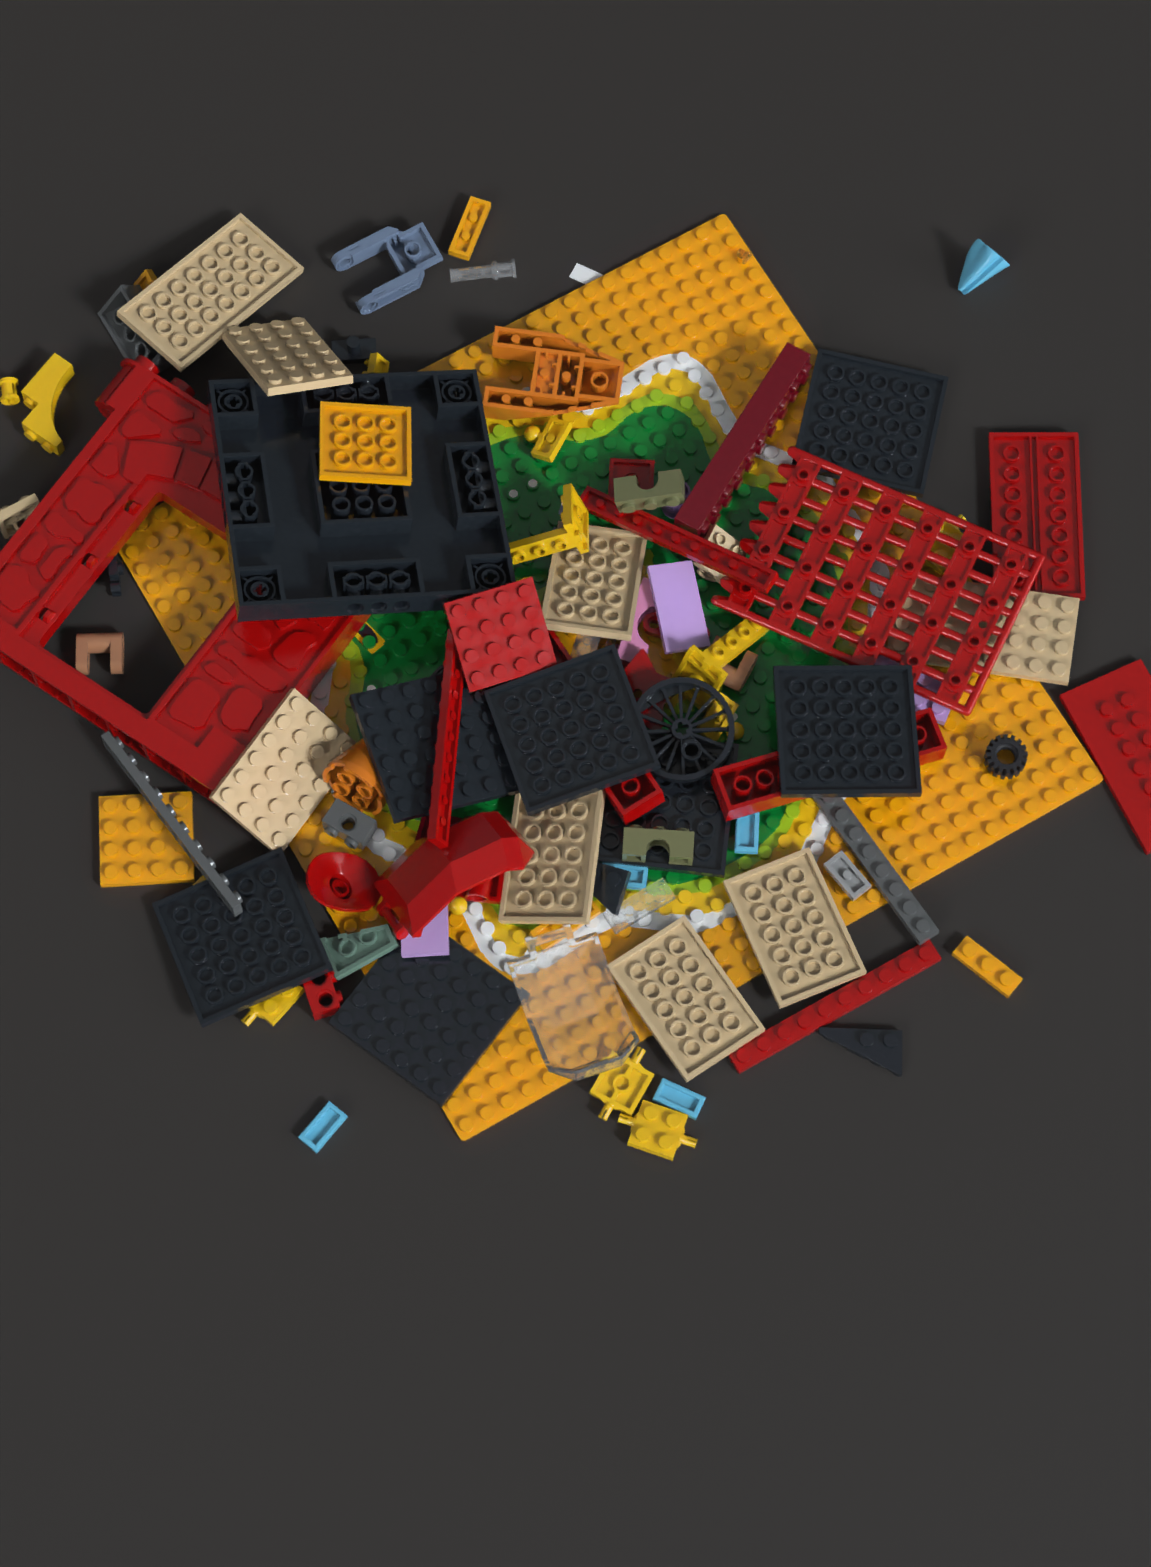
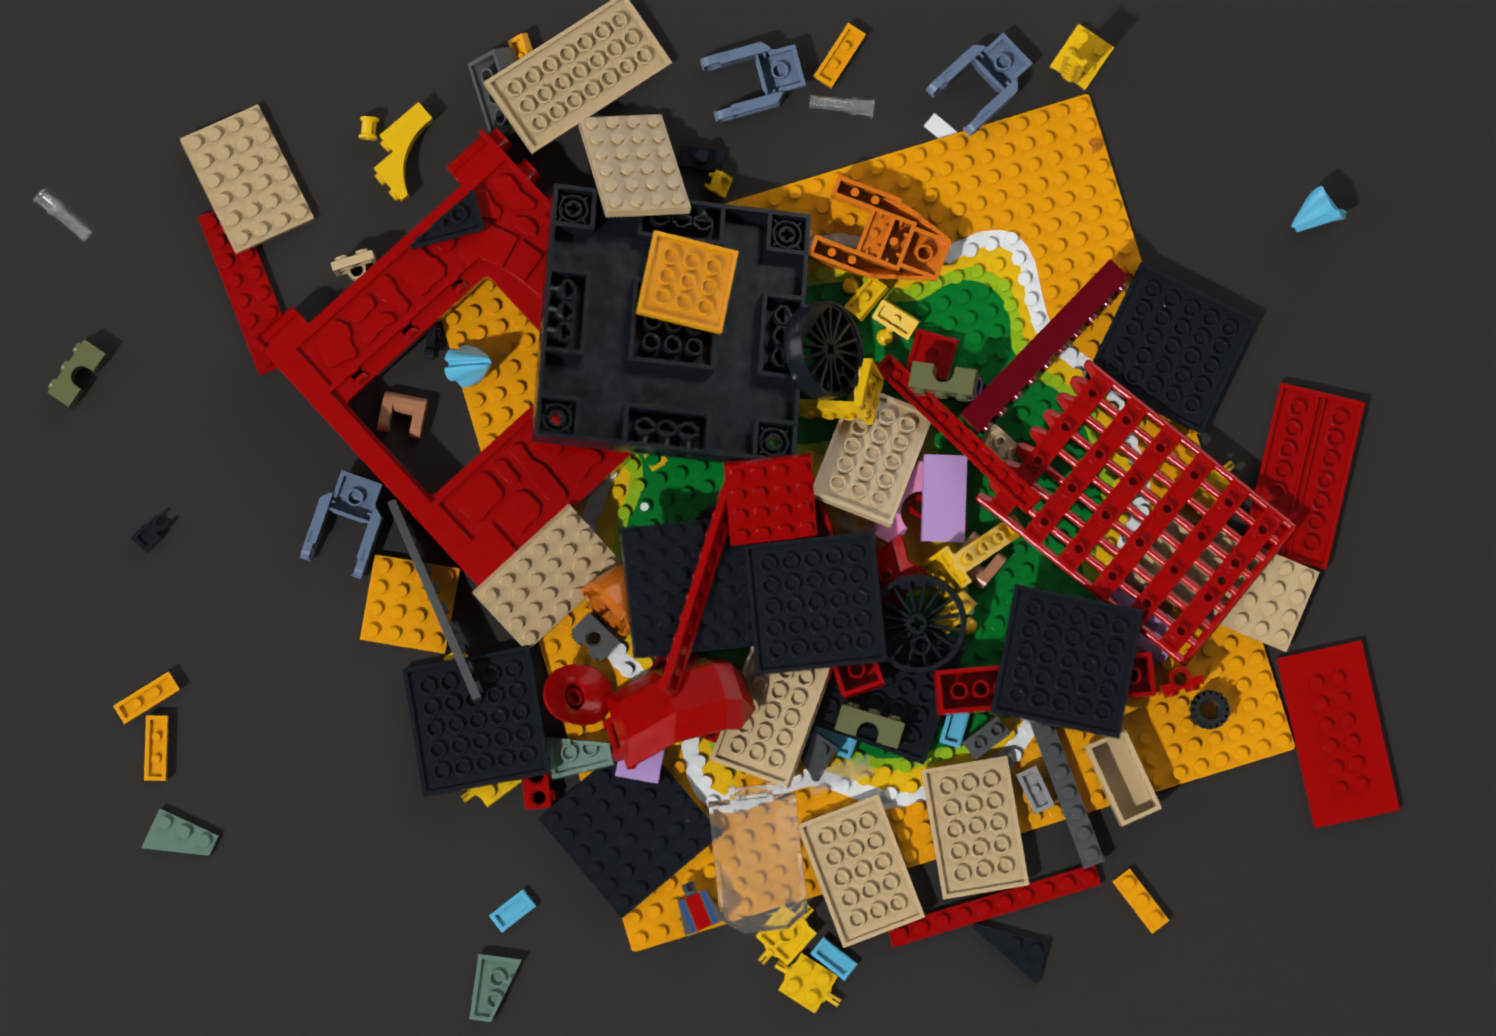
camera: 15 degrees right, 15 degrees up
(67, 746) = (354, 499): none -> sand blue plate
(119, 442) = (458, 222): none -> black wing
(158, 588) = (467, 365): none -> medium azure hat
(316, 1208) = (491, 984): none -> sand green wing
(522, 1076) = (697, 909): none -> torso
(528, 483) = (832, 368): none -> black piece
(586, 455) = (895, 320): none -> yellow plate
(629, 203) = (999, 66): none -> sand blue plate
(709, 180) = (1081, 57): none -> yellow bracket
(782, 834) = (986, 738): none -> dark grey brick
(935, 840) = (1122, 778): none -> tan piece
(968, 731) = (1189, 683): none -> red plate

